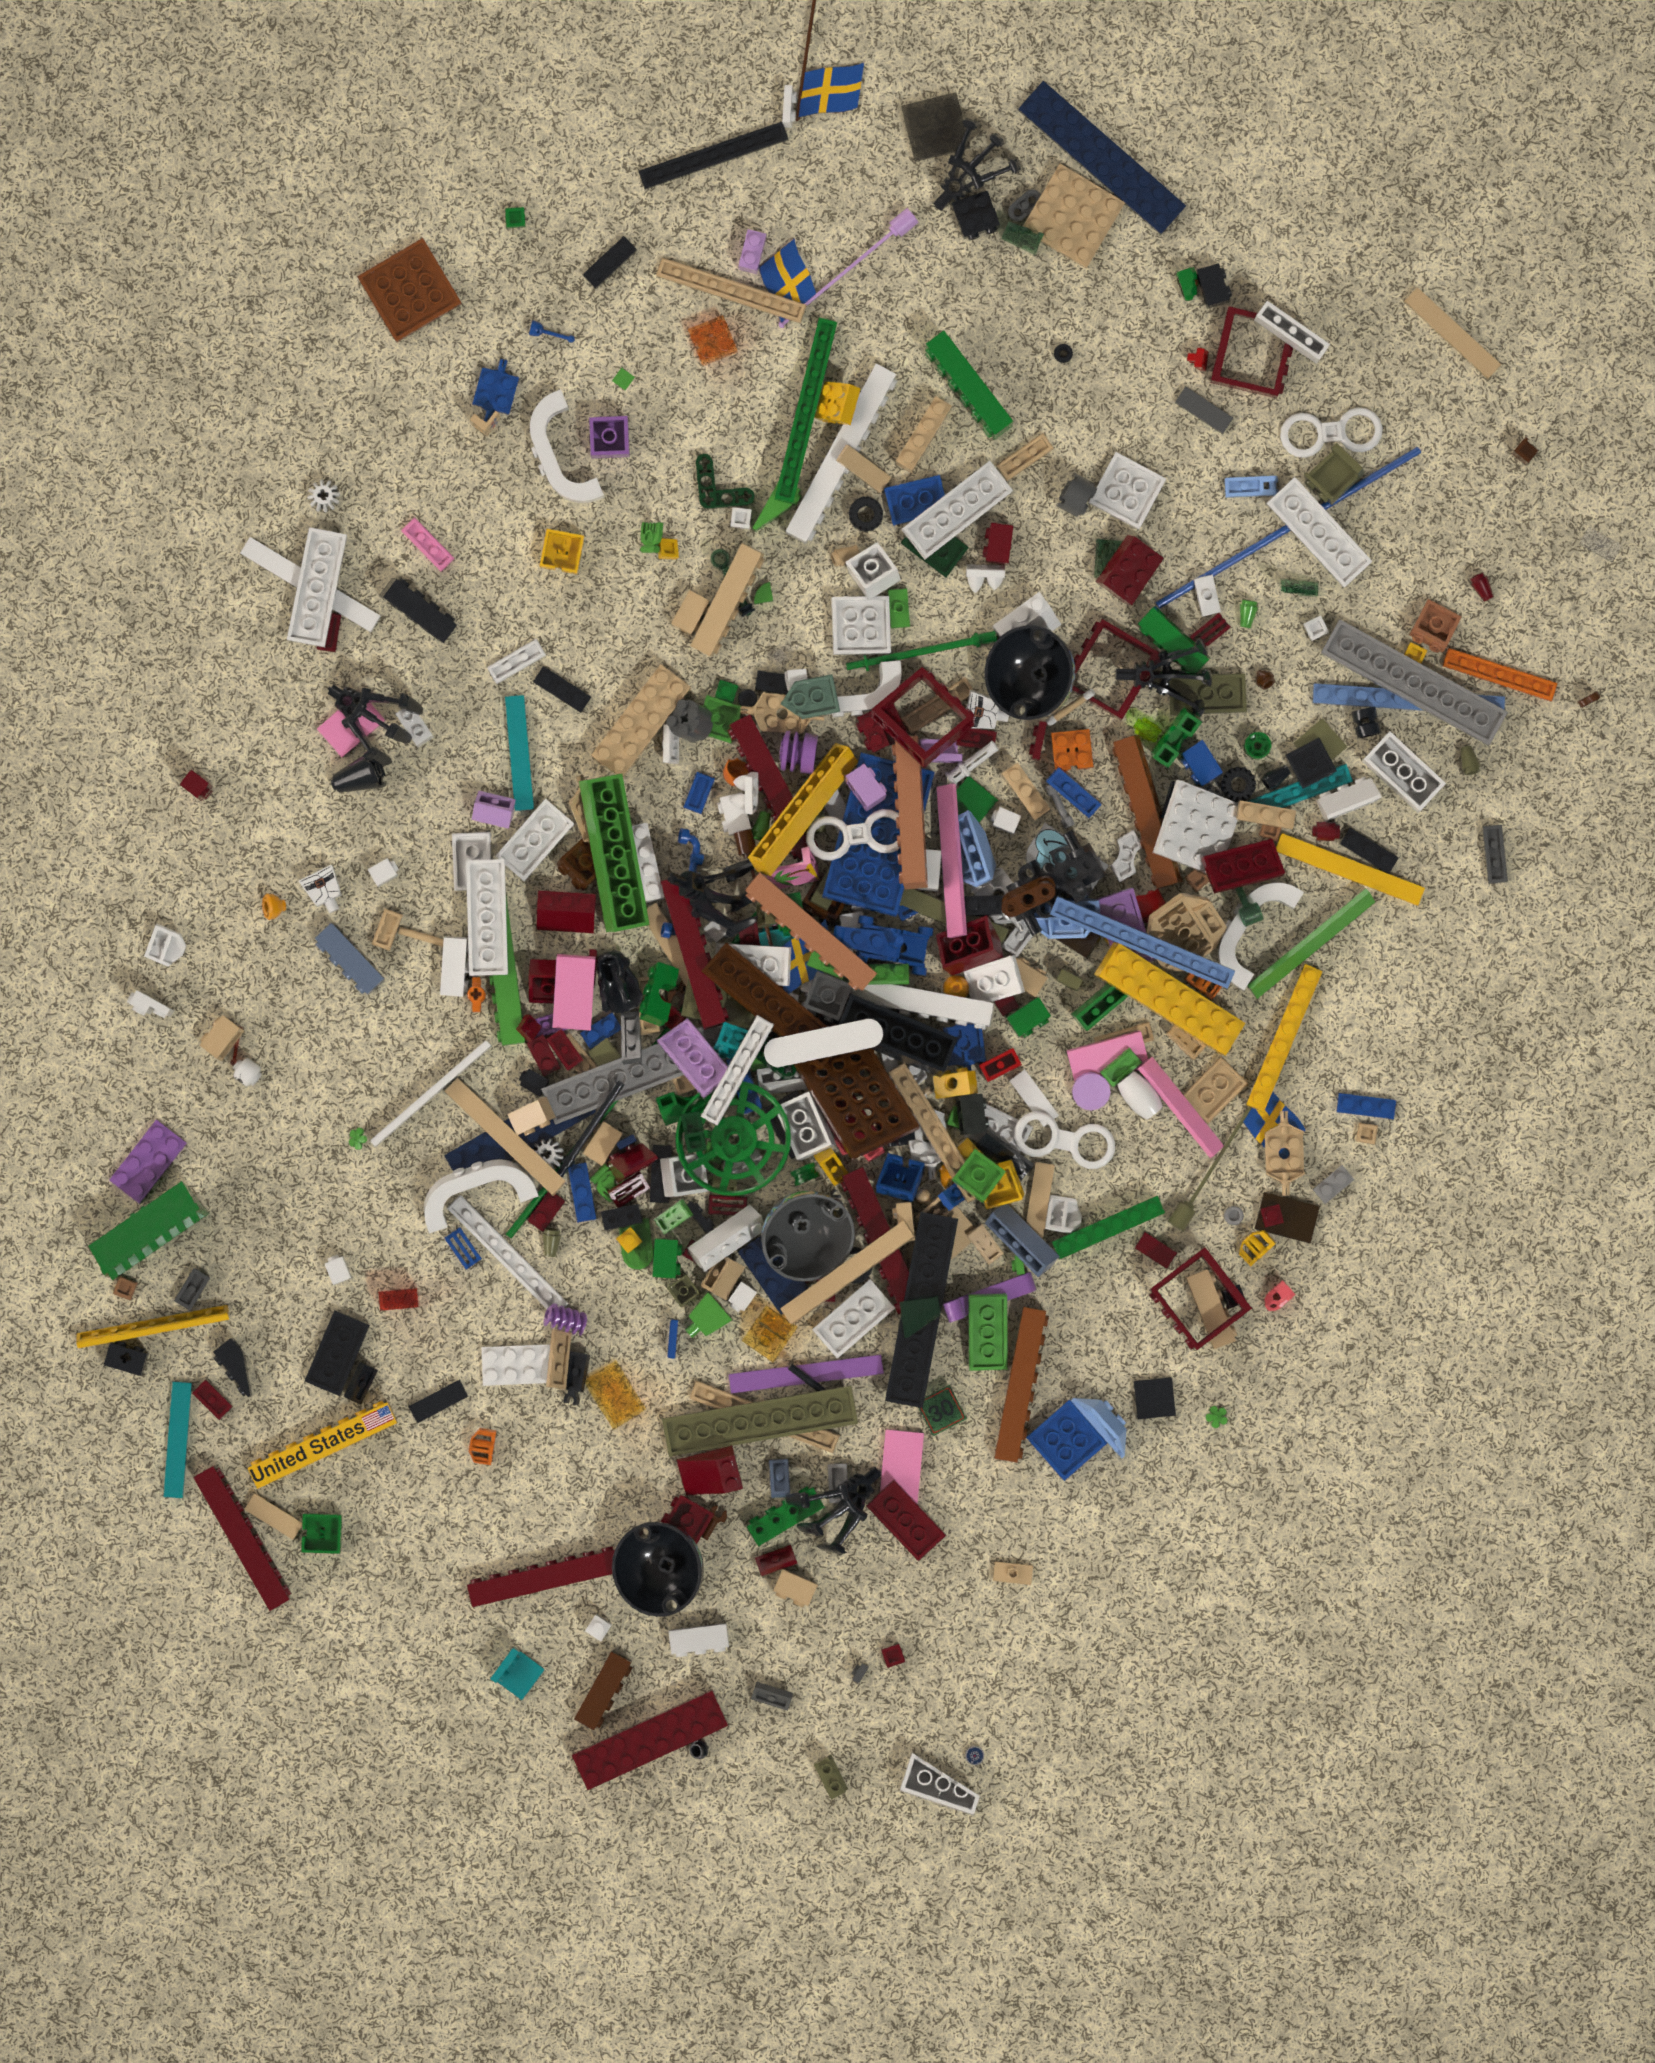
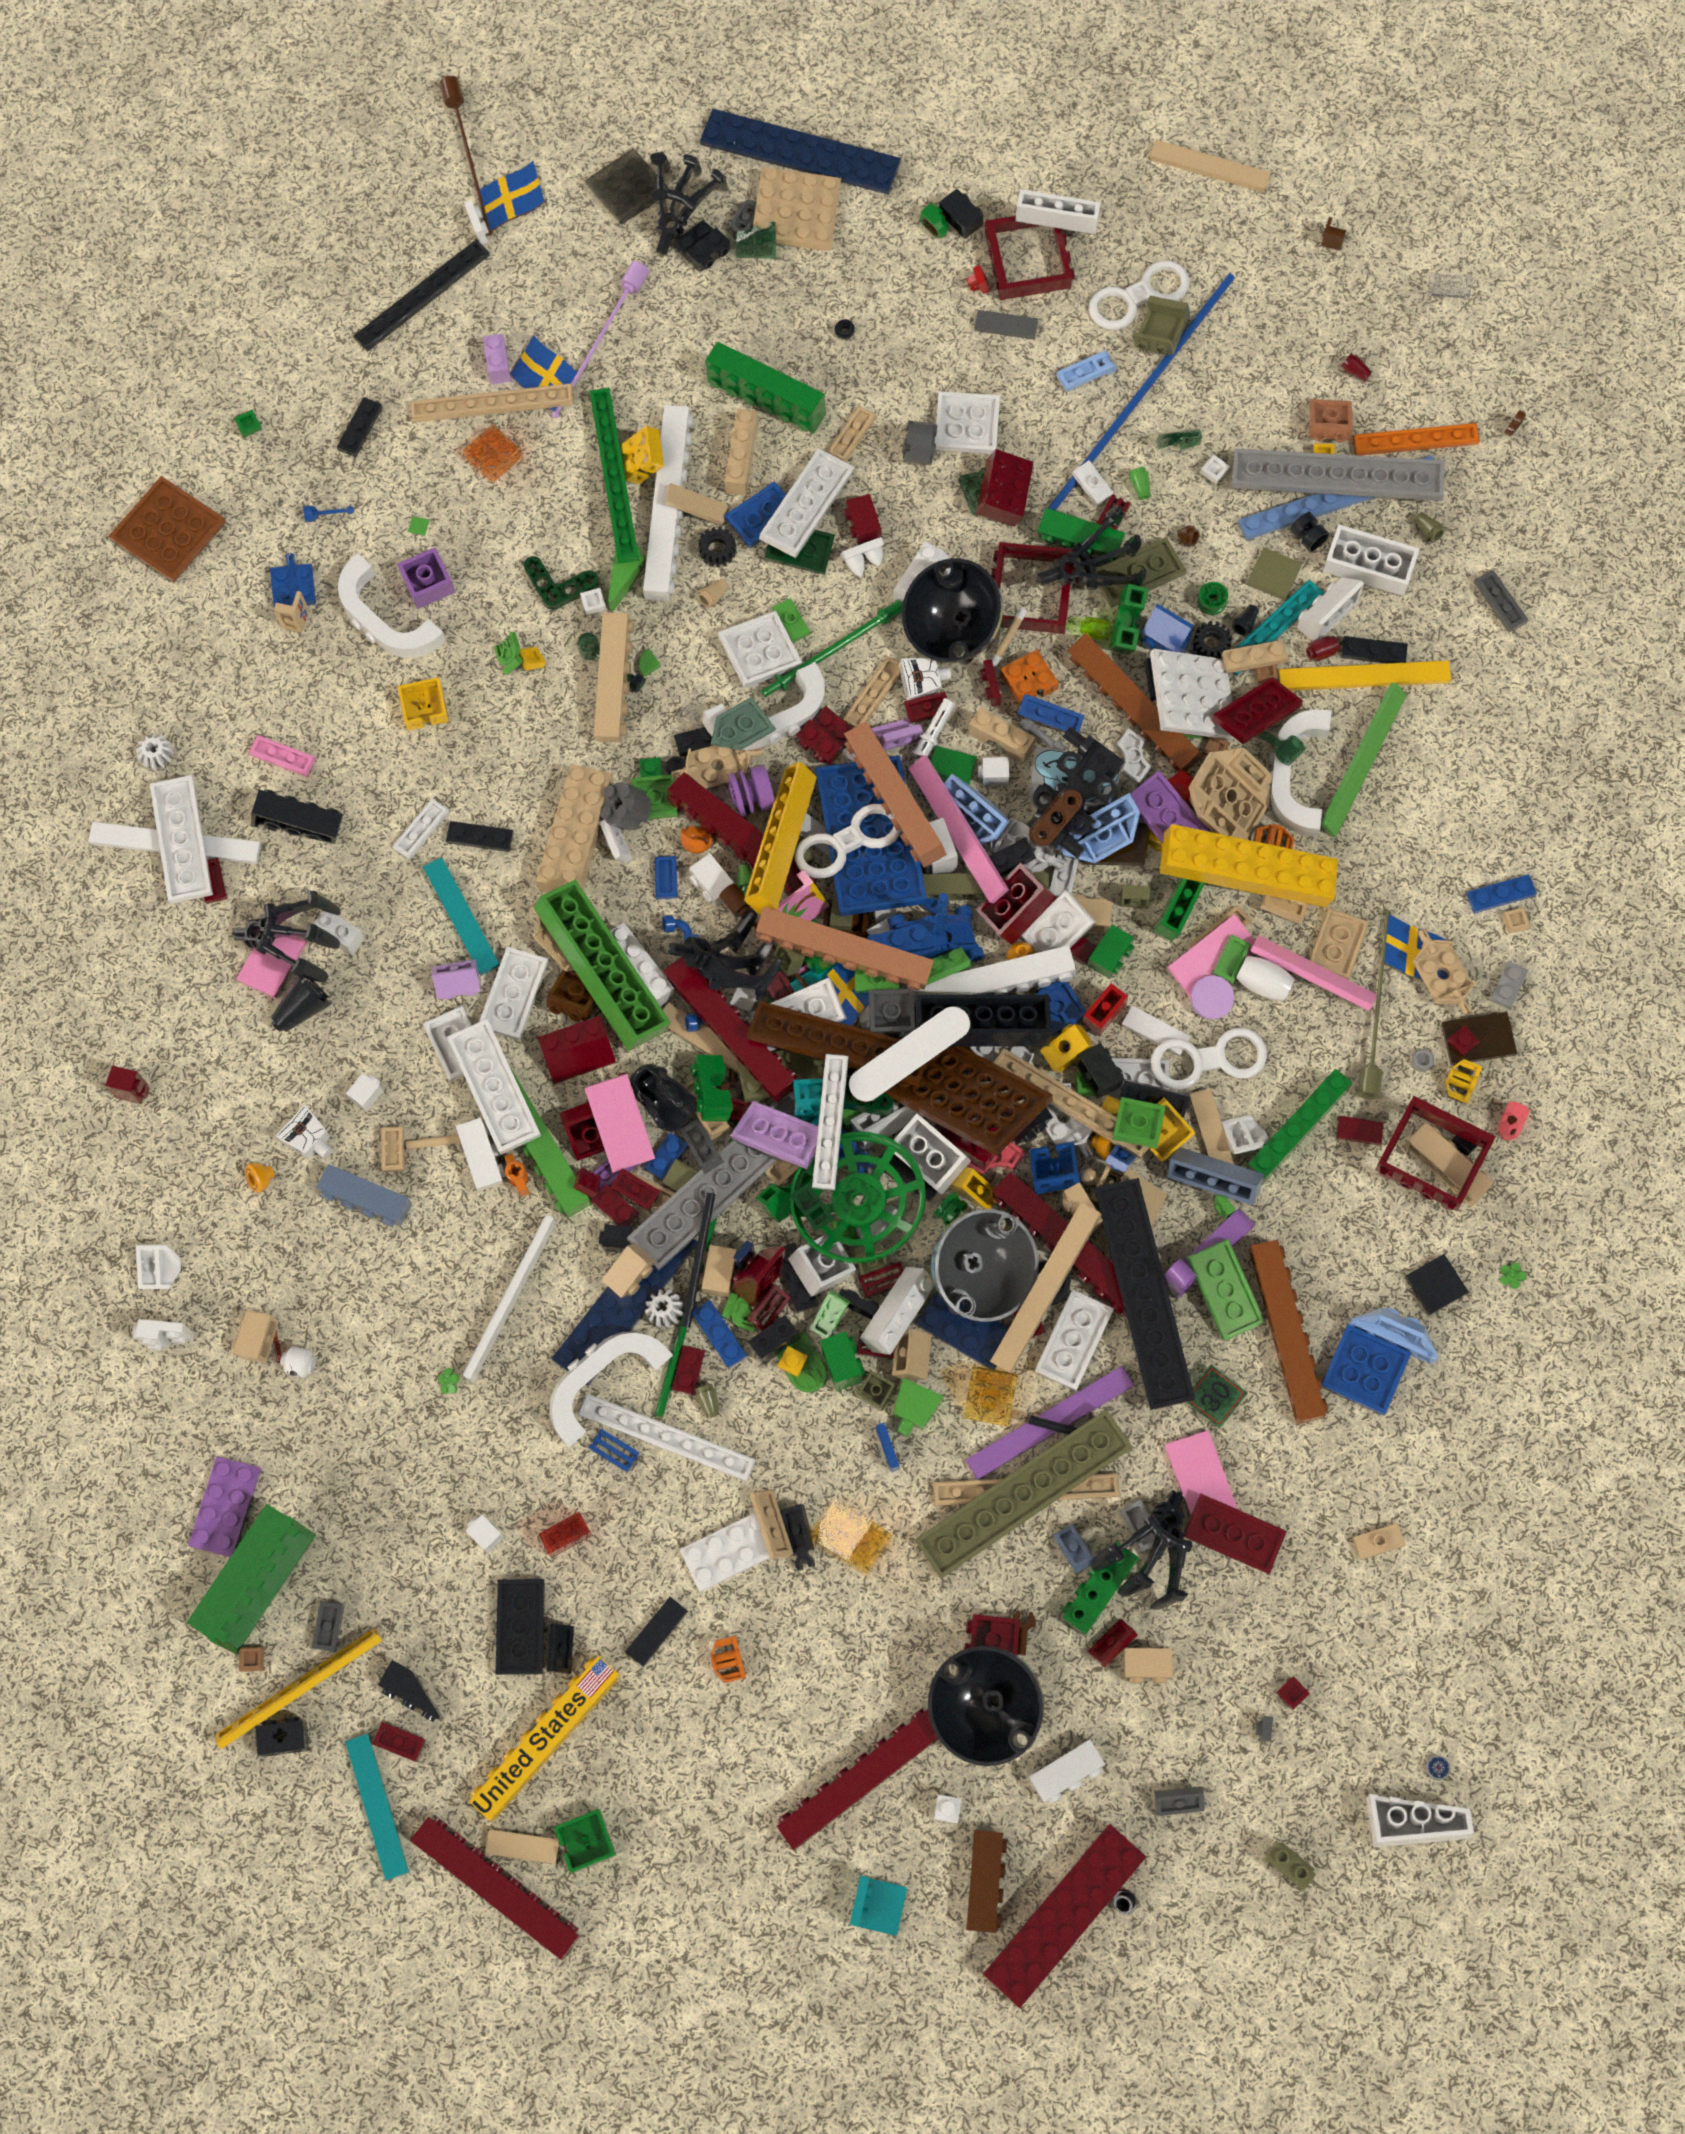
camera: 20 degrees left, 15 degrees down
(505, 1136) = (610, 1307): tan tile -> none
(566, 1318) = (758, 1474): medium lavender piece -> none
(691, 613) = (580, 708): tan brick -> none
(710, 1472) = (995, 1575): dark red slope -> none
(742, 1297) = (942, 1369): white brick -> none
(749, 800) = (720, 856): white tile -> none
(866, 787) = (835, 793): lavender brick -> none
(873, 571) = (748, 591): white brick -> none
(902, 738) = (860, 727): dark red window -> none
(918, 1313) = (1143, 1296): clear green slope -> none
(984, 1243) = (1176, 1200): tan plate -> none
(1142, 942) = (1196, 812): medium blue plate -> none
(1284, 1038) = (1383, 862): yellow plate -> none
(1310, 763) = (1274, 591): black tile -> none
(1319, 532) = (1173, 381): white plate -> none

